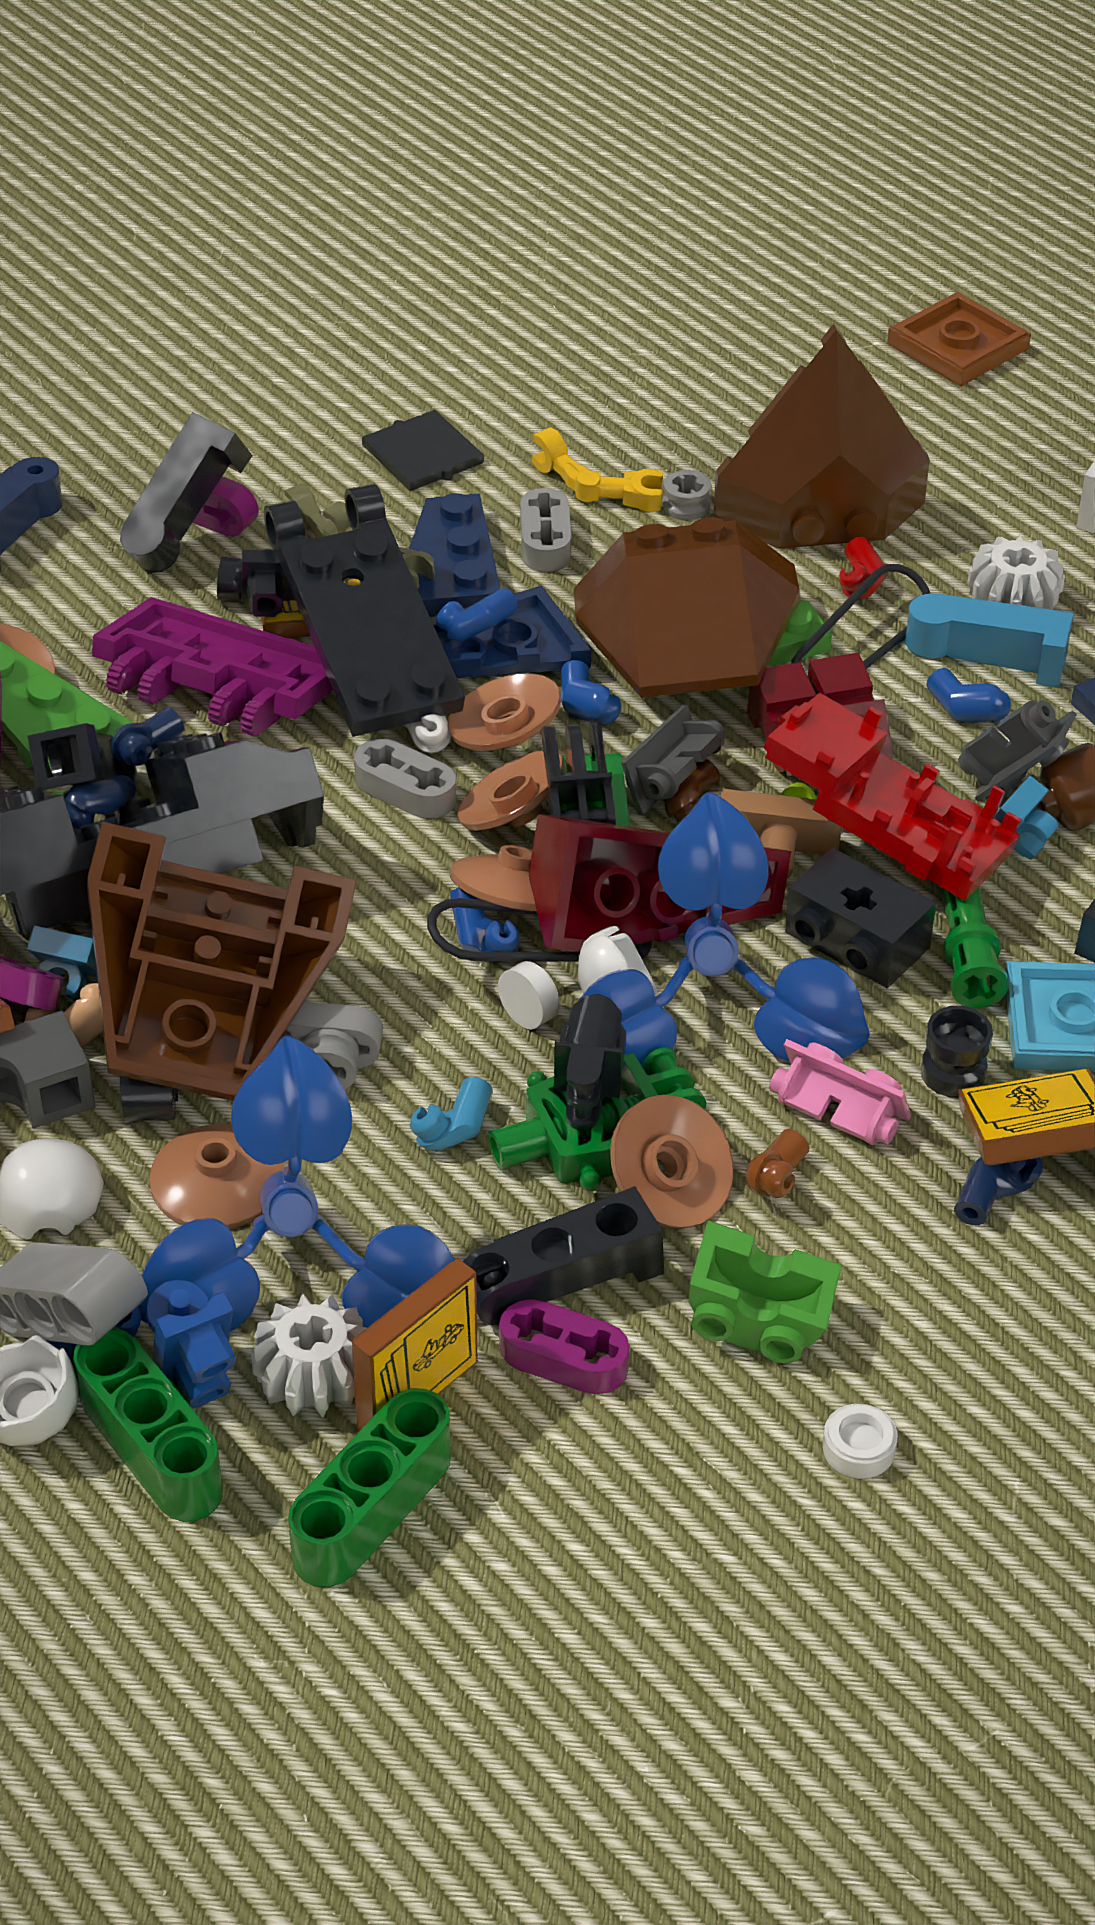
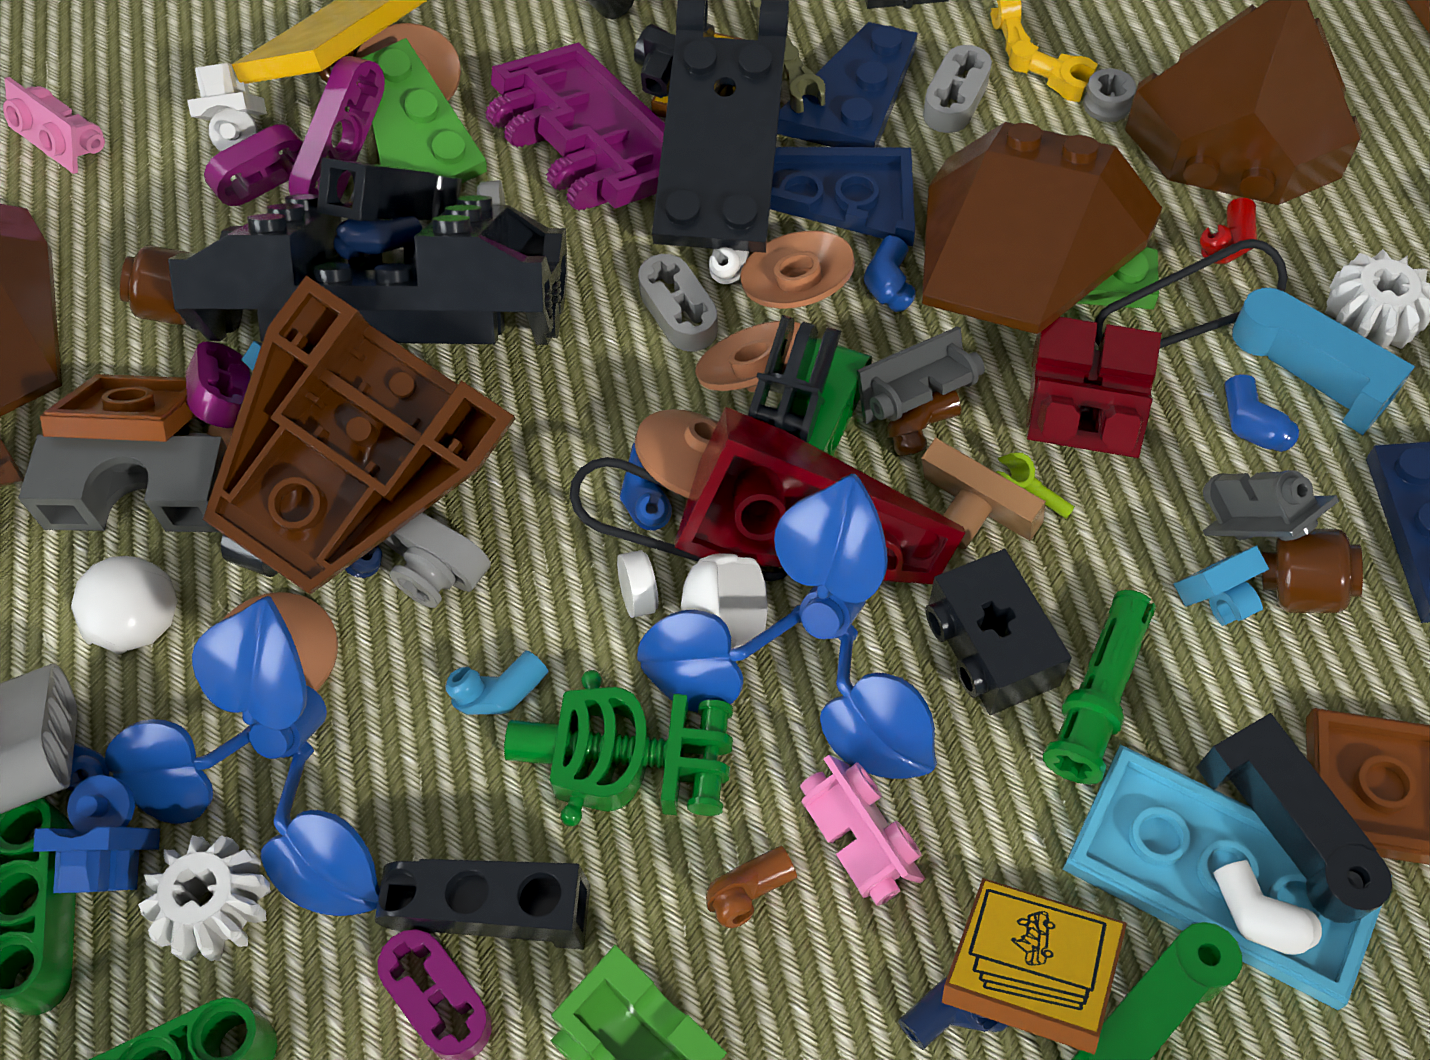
camera: 30 degrees right, 15 degrees up
(137, 741) = (443, 188): dark blue arm -> none
(418, 1342) = (264, 955): tile -> none
(477, 618) = (829, 163): blue arm -> none
(589, 1059) = (623, 696): black arm -> none
(692, 1151) = (667, 864): nougat dish -> none
(886, 801) = (1088, 519): red piece -> none
(956, 1050) = (1010, 821): black wheel -> none

